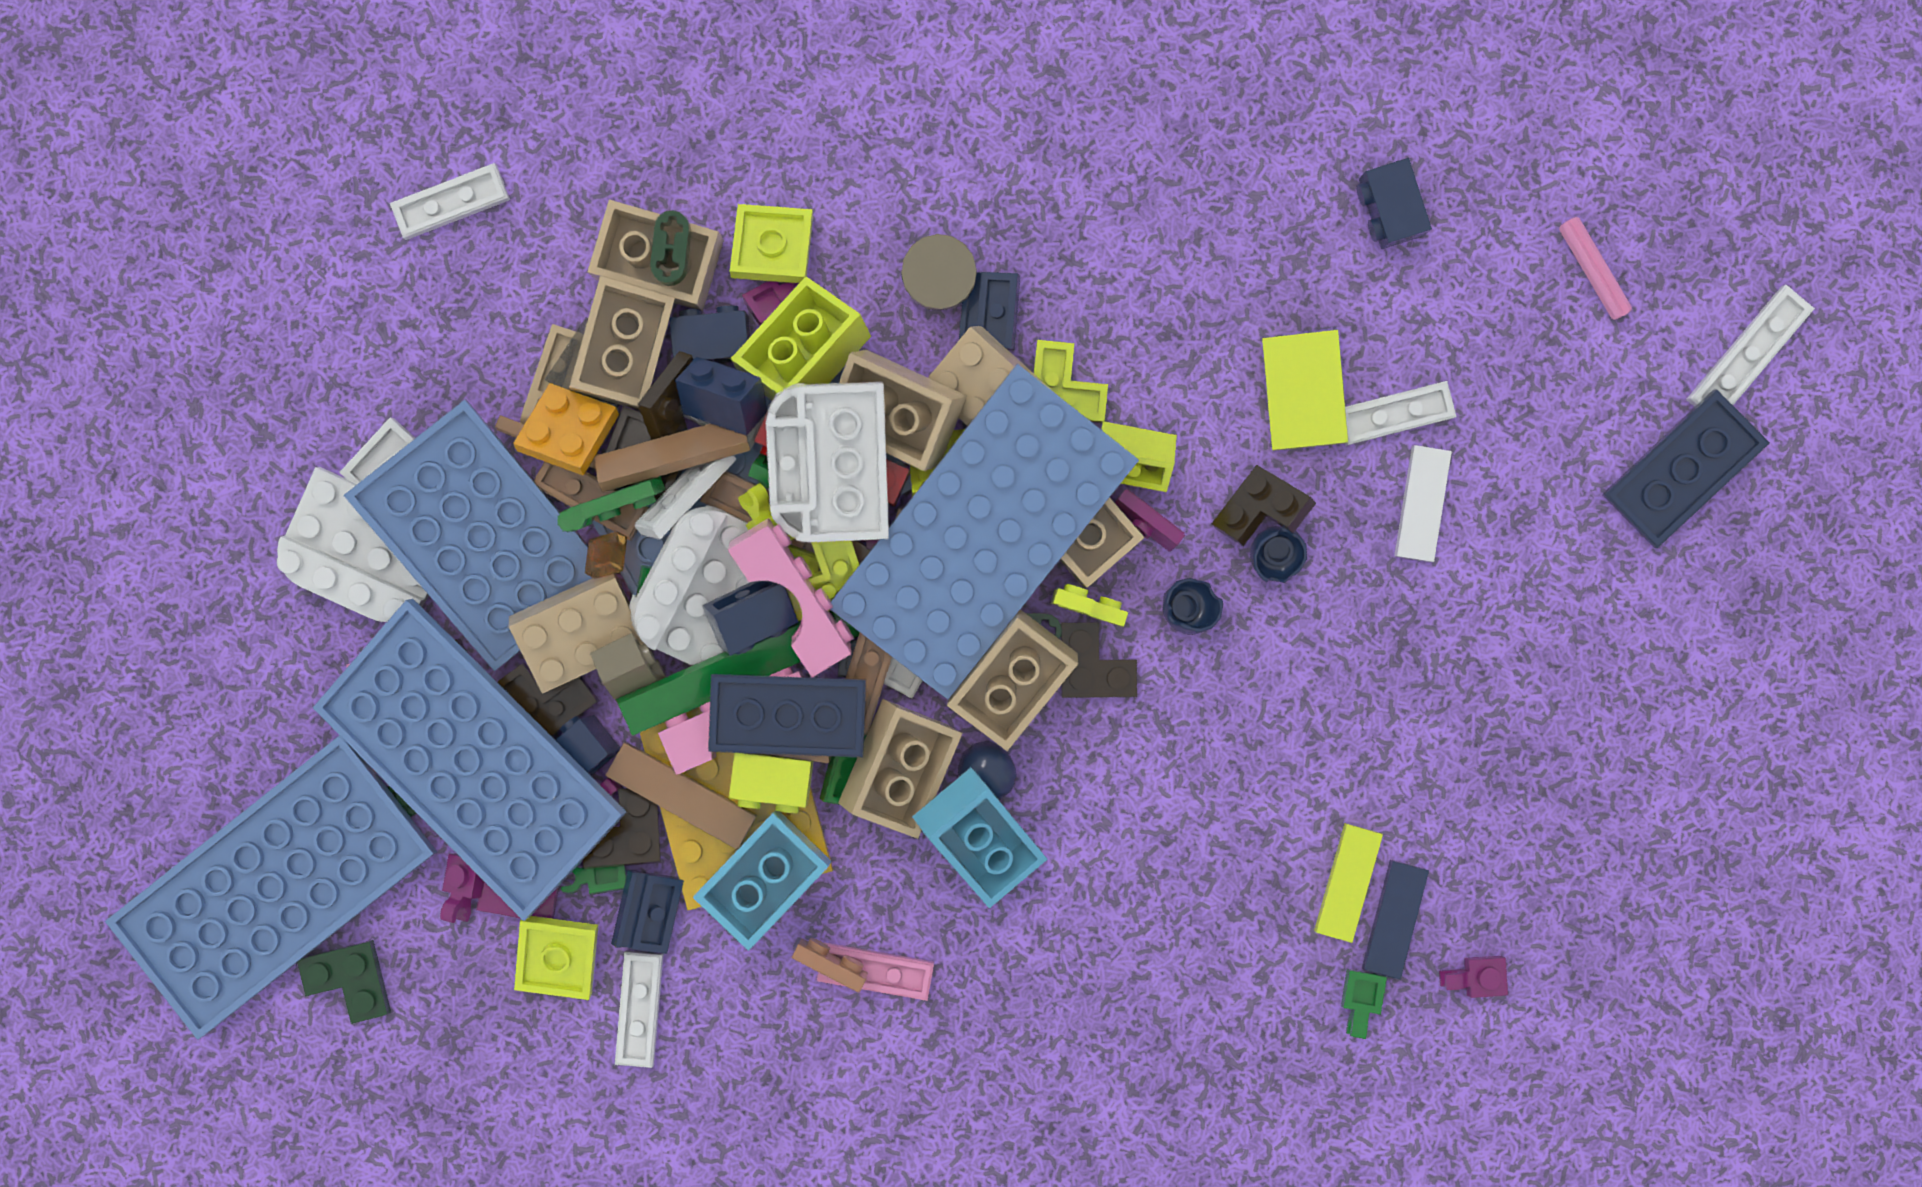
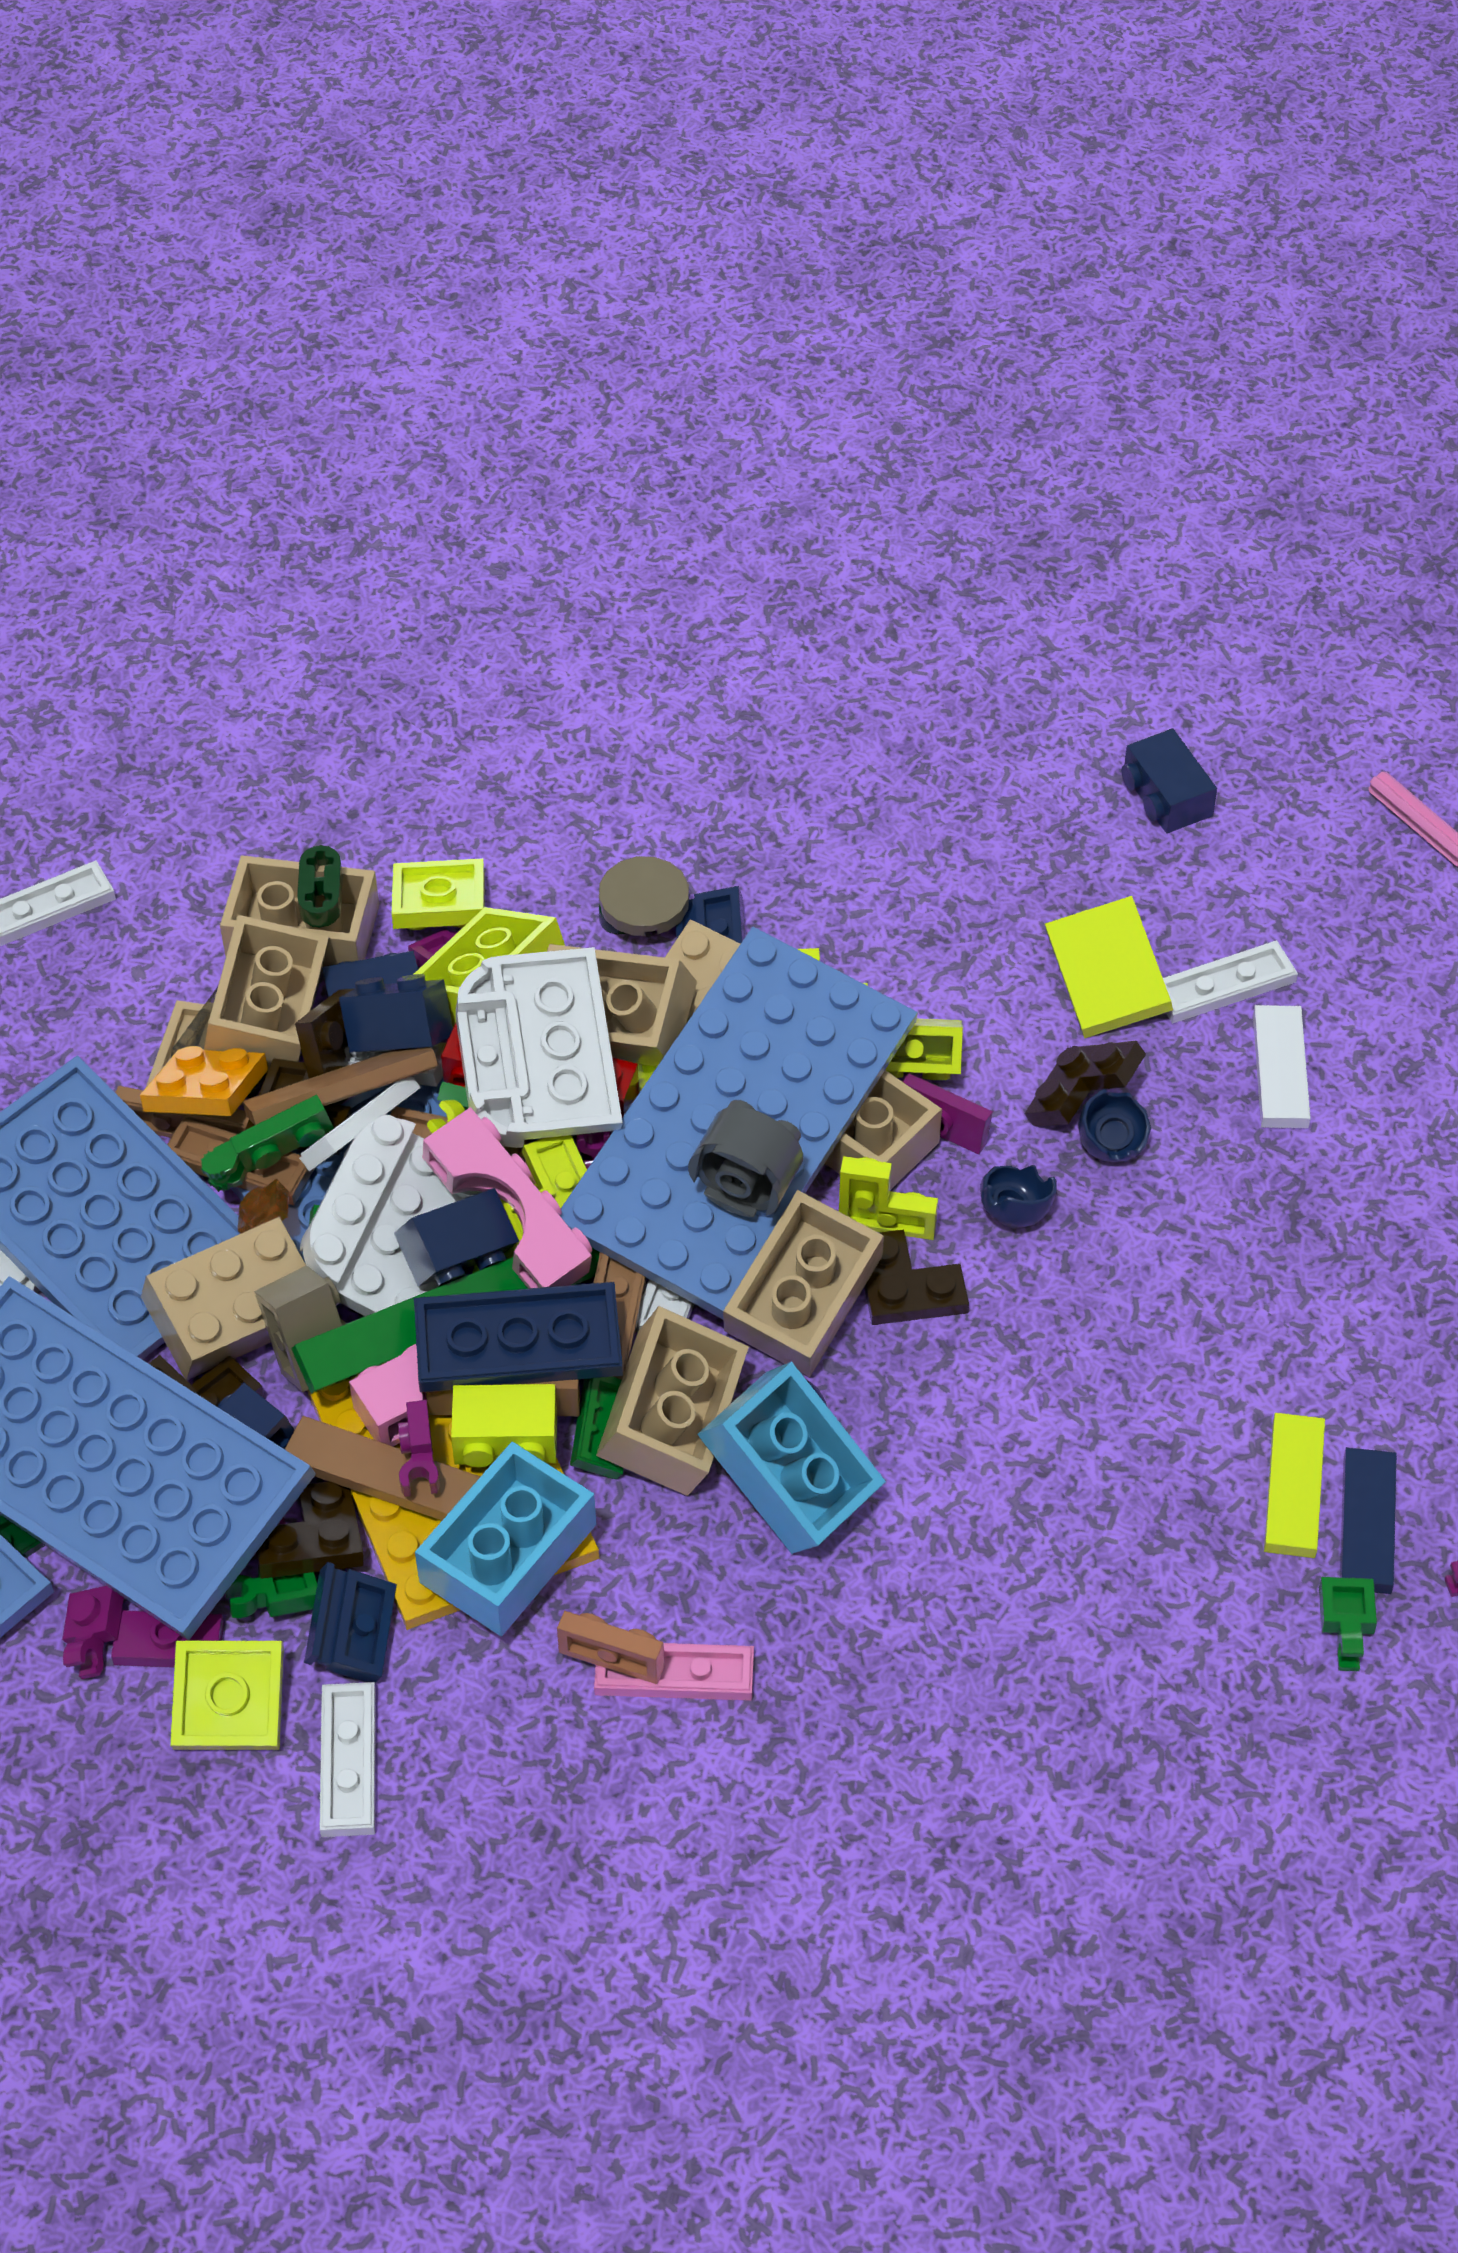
camera: 10 degrees left, 35 degrees down
(704, 787) = (416, 1439): none -> magenta plate
(979, 602) = (747, 1159): none -> dark grey brick

